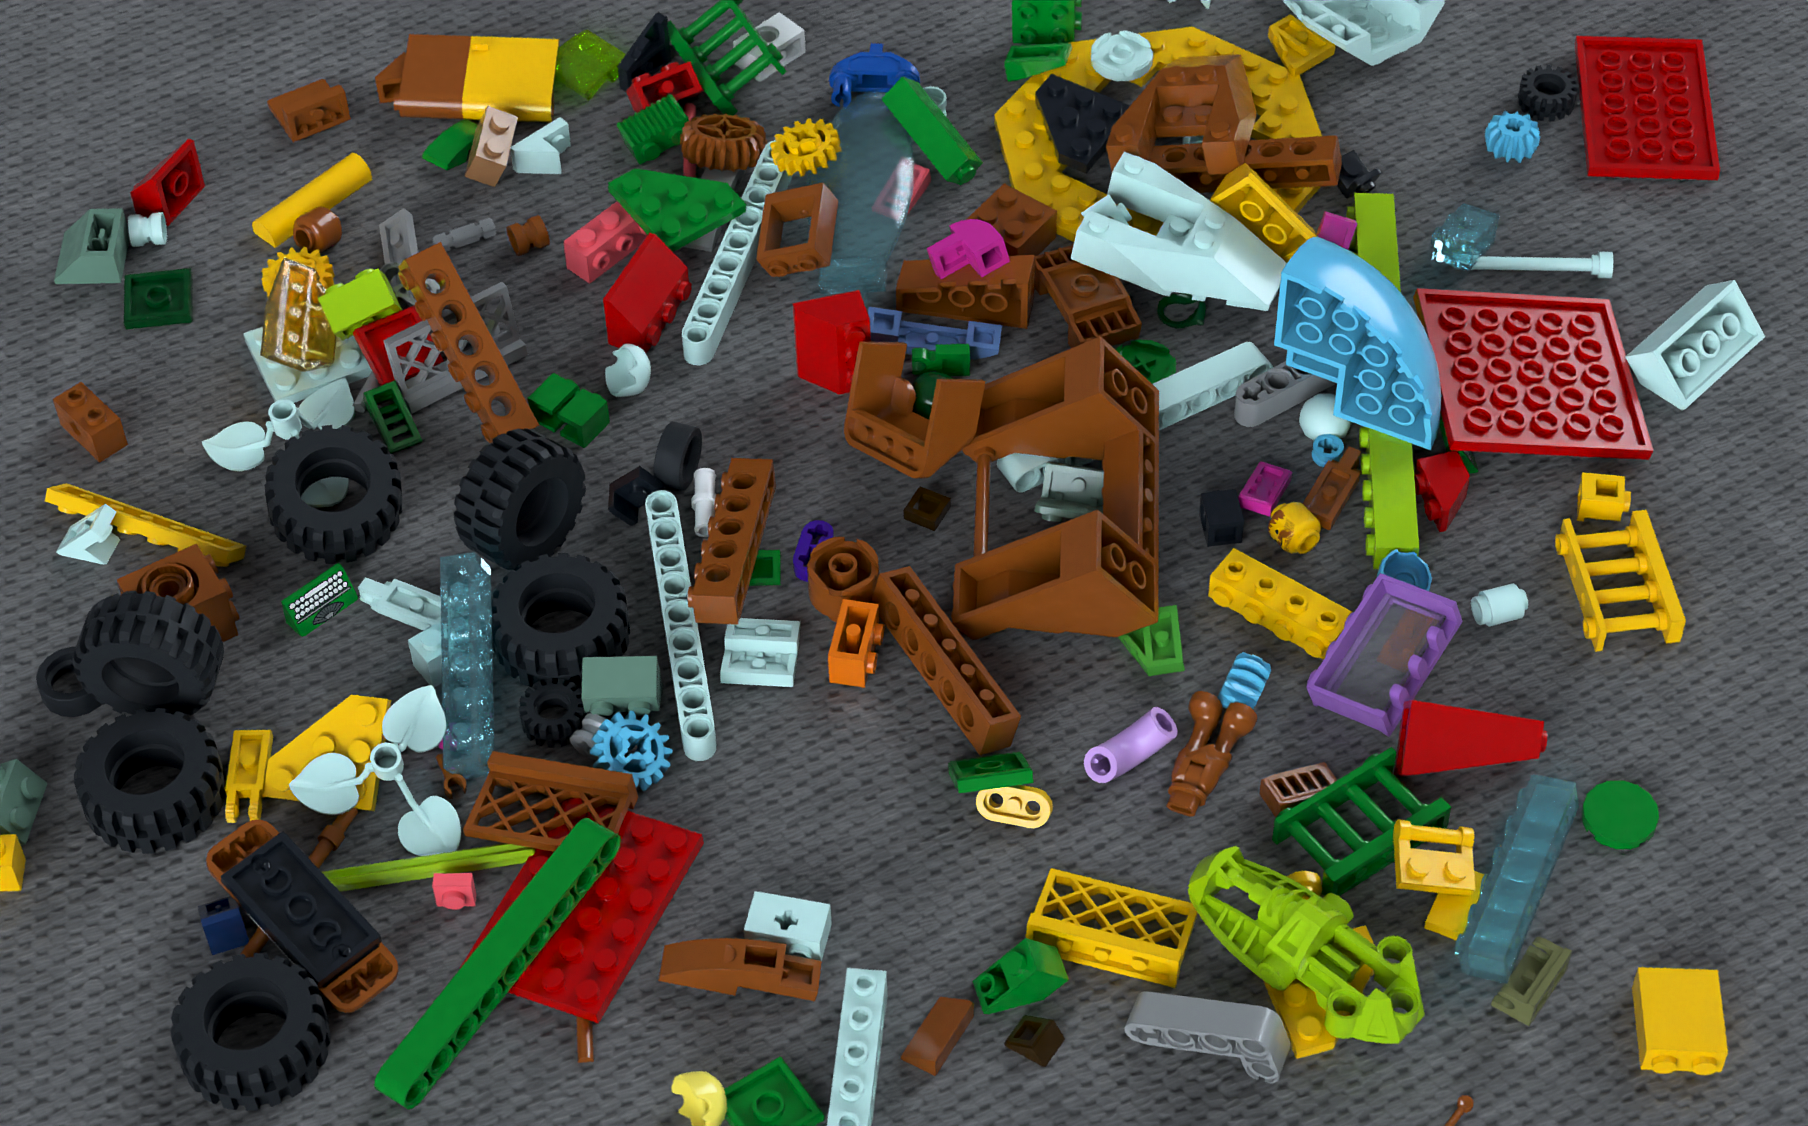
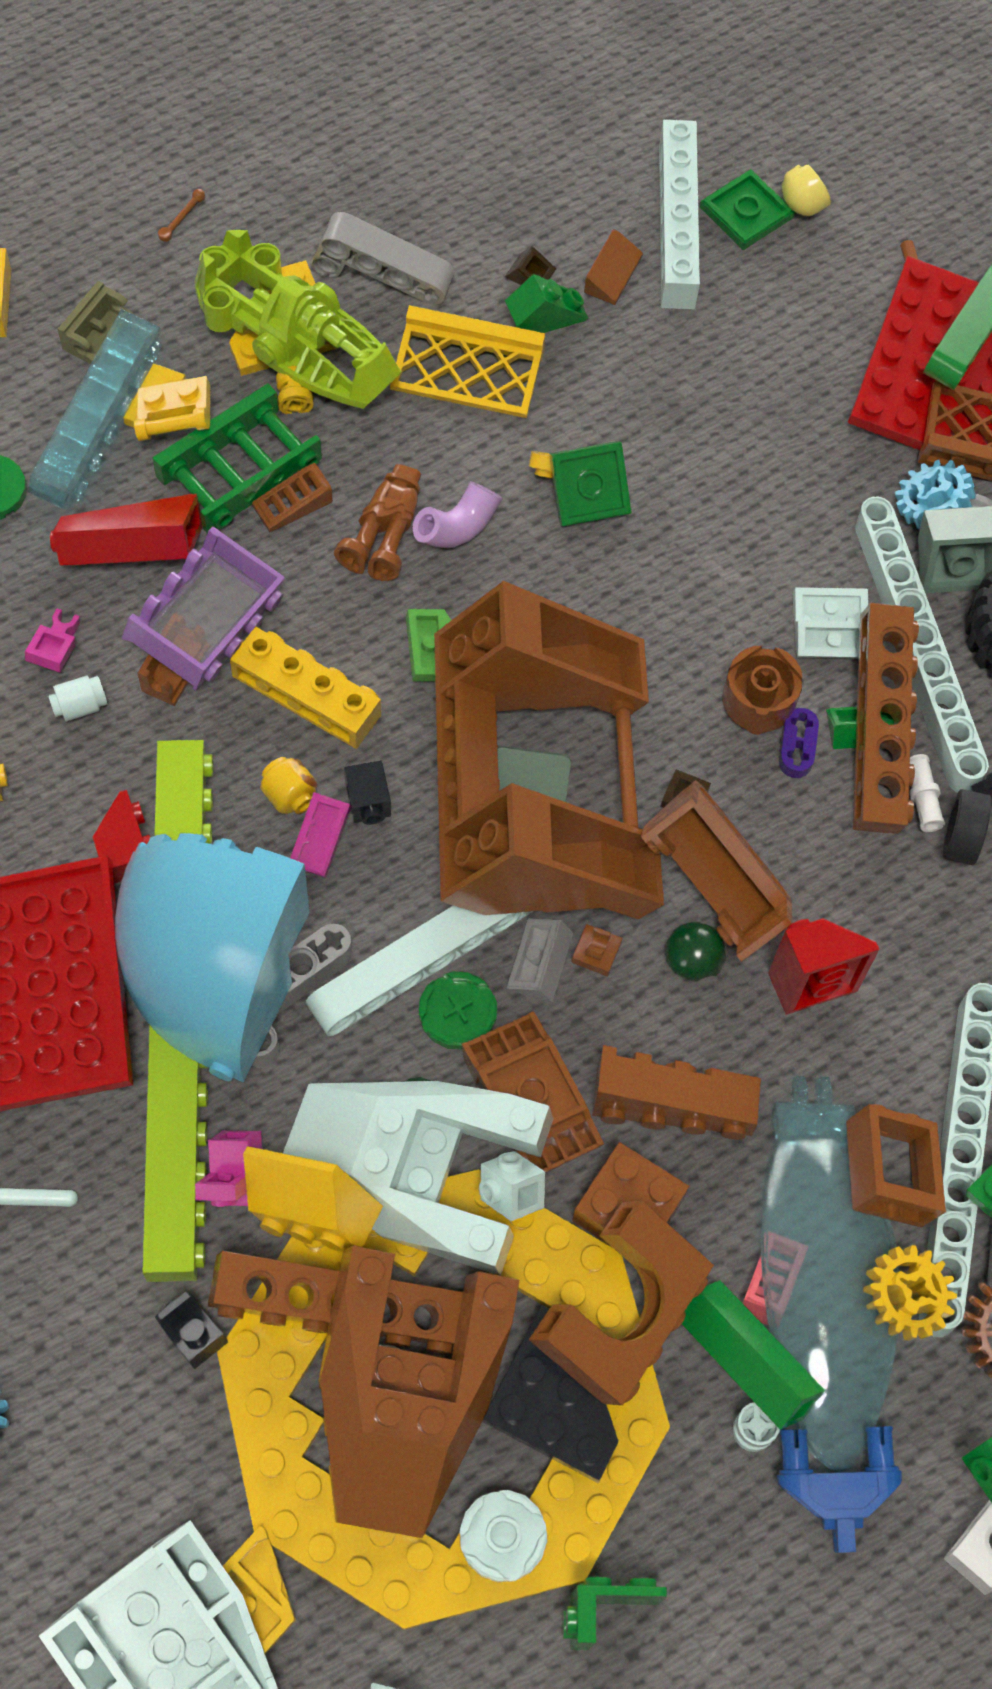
camera: 170 degrees right, 15 degrees up
(732, 963) = (792, 296): dark orange slope -> none
(790, 921) = (757, 343): light aqua brick -> none
(854, 643) = (739, 613): orange brick -> none
(888, 327) = (708, 1036): medium blue slope -> none
(945, 661) = (648, 598): dark orange brick -> none
(947, 359) = (686, 995): green plate -> none
(970, 243) = (671, 1101): dark pink brick -> none
(995, 156) = (671, 1278): none -> dark orange arch
(1030, 60) = (651, 1529): green slope -> none
(1245, 680) = (346, 582): medium azure gear -> none
(1334, 488) = (253, 822): dark orange hinge -> none
(1406, 568) = (177, 719): medium azure hair -> none
(1464, 237) = (37, 1225): clear light blue brick -> none
(1530, 655) = (53, 645): none -> dark pink plate

